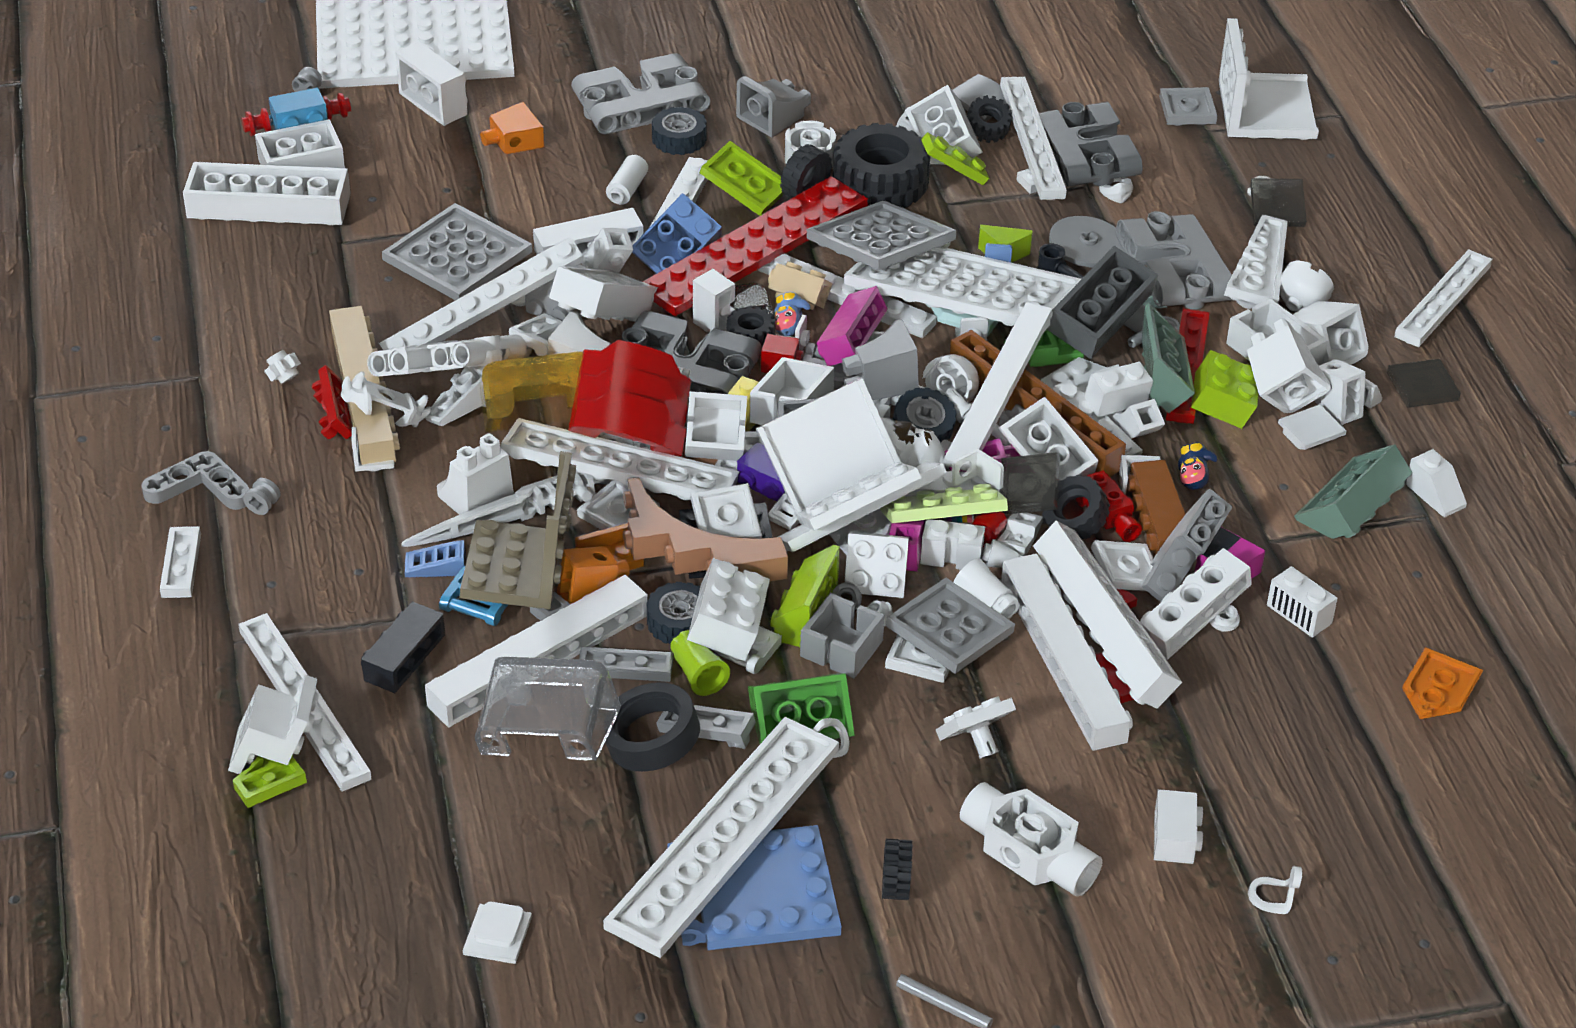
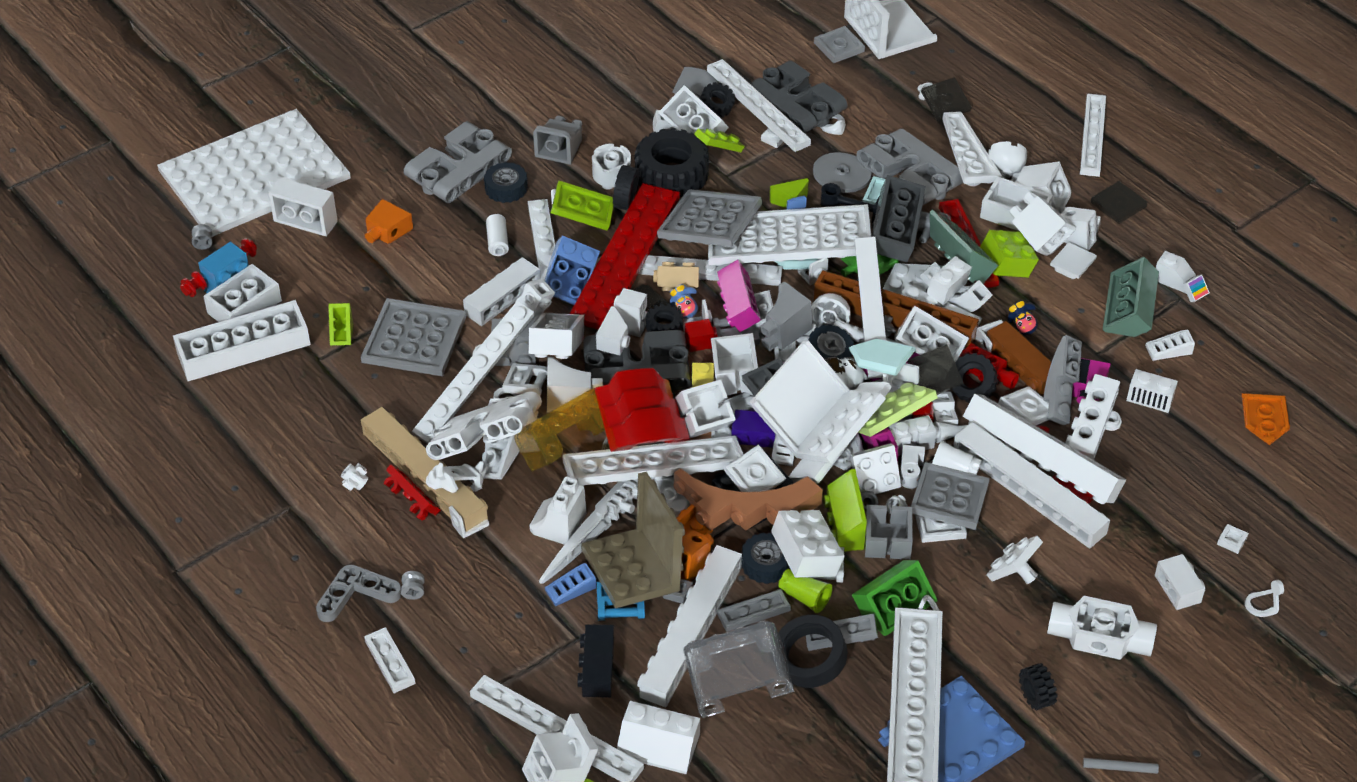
camera: 25 degrees left, 5 degrees up
(386, 212) = (340, 324): none -> lime slope
(410, 751) = (659, 736): none -> white slope
(668, 313) = (613, 333): none -> white slope
(930, 572) = (911, 460): none -> white leg
(968, 439) = (881, 355): none -> light aqua tile
(1285, 805) = (1232, 538): none -> white plate
(1378, 563) = (1182, 339): none -> white slope
(1451, 508) = (1196, 288): none -> tile

